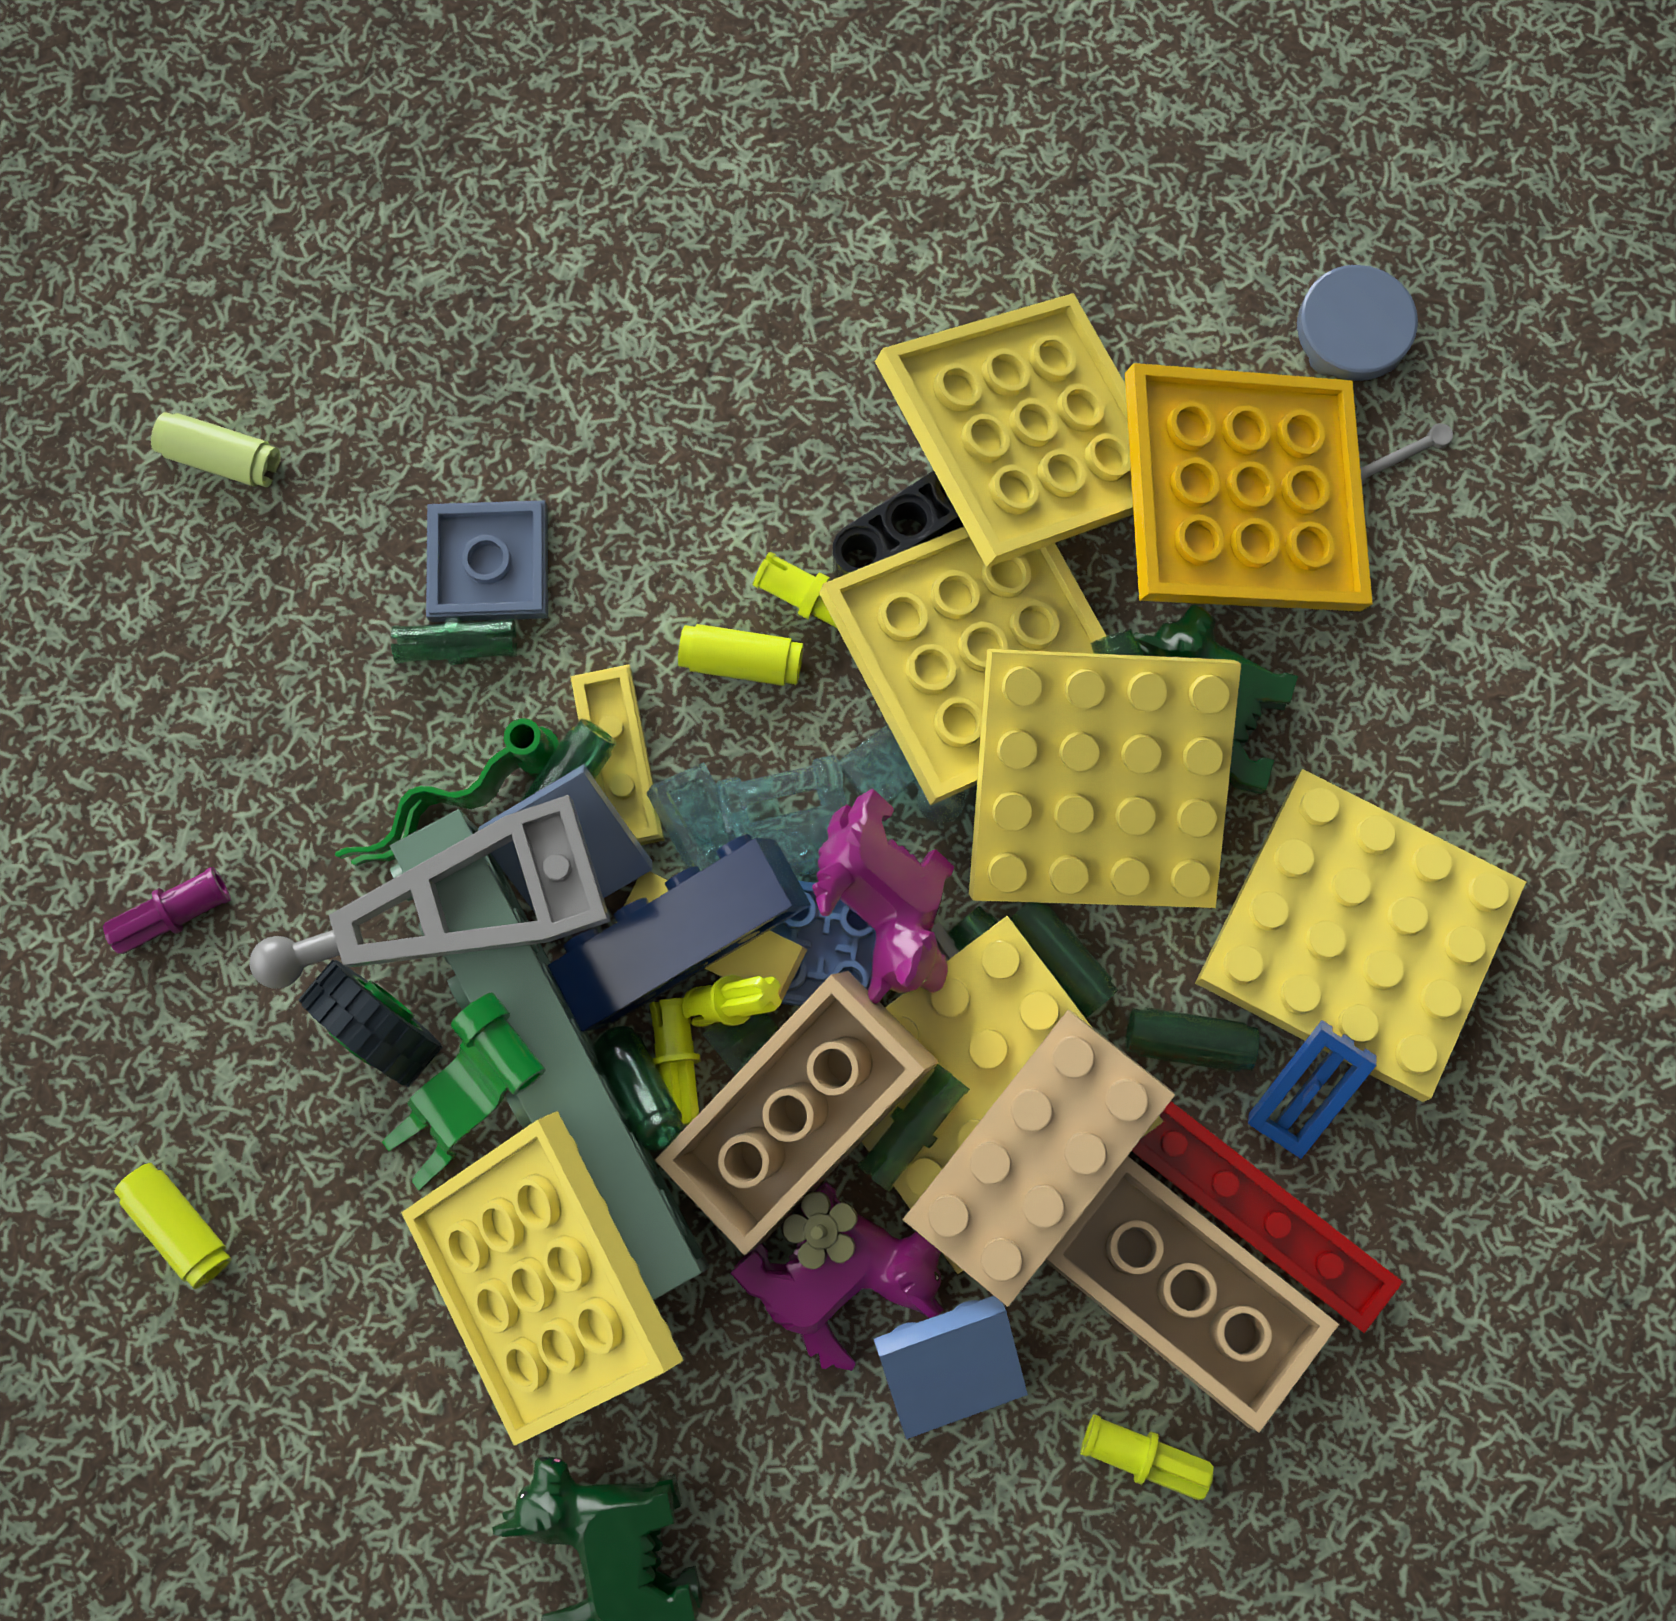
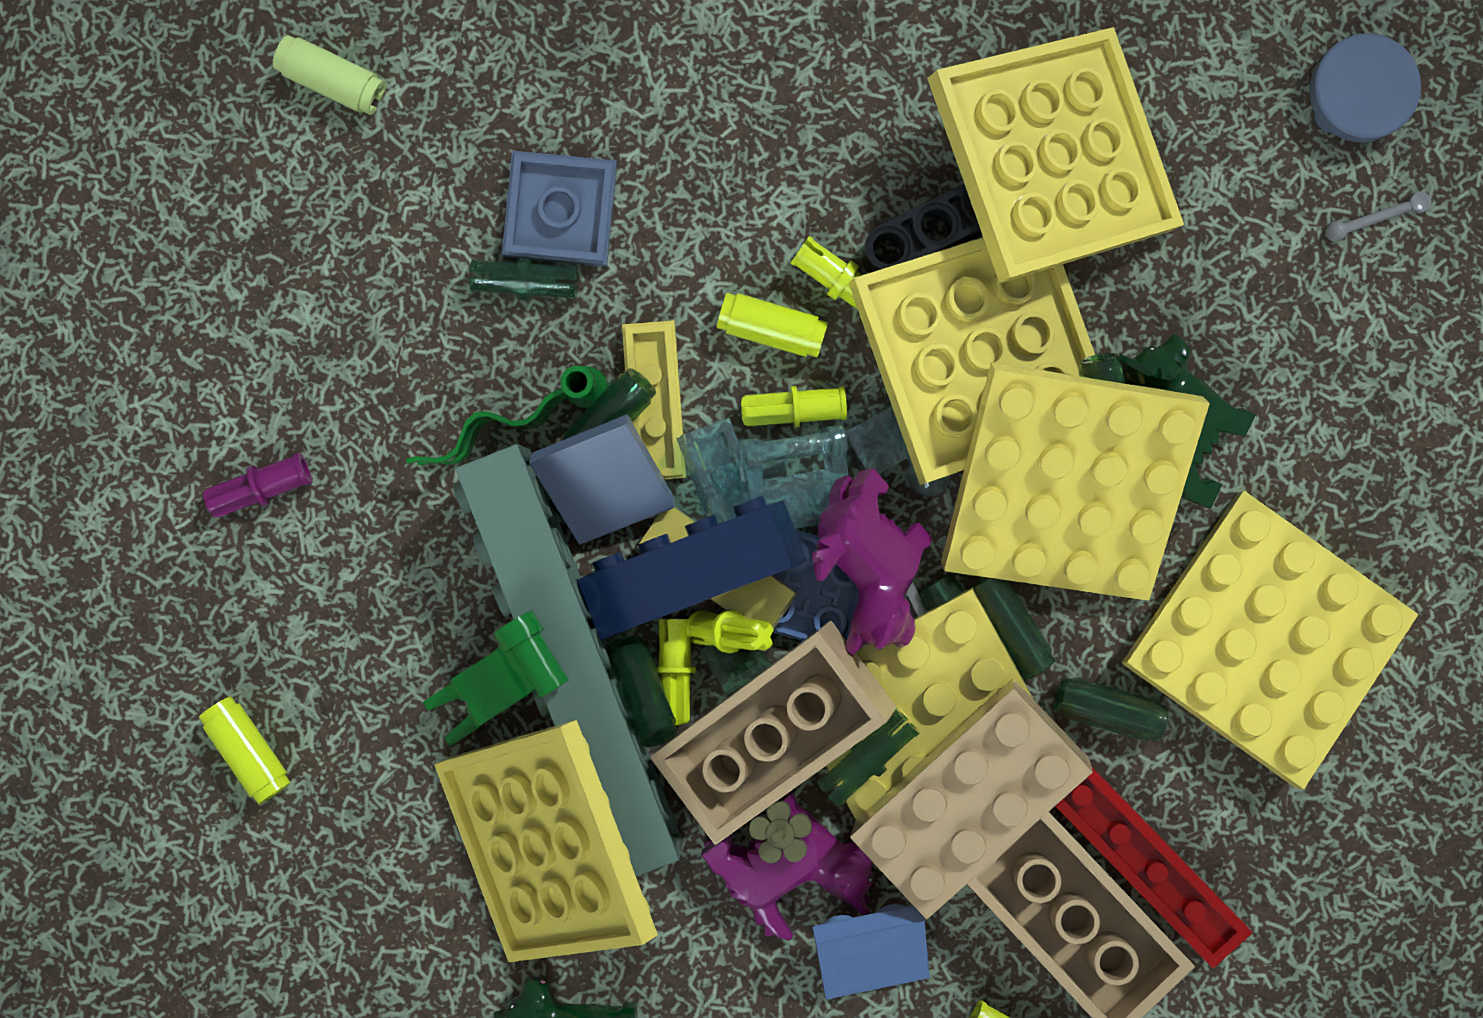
camera: 15 degrees right, 10 degrees up
(370, 1023) = (423, 610): black wheel -> none
(554, 869) = (594, 510): light grey plate -> none
(777, 742) = (794, 407): none -> neon yellow axle
(1246, 489) = (1239, 233): yellow plate -> none
(1341, 1048) = (1235, 739): blue tile -> none

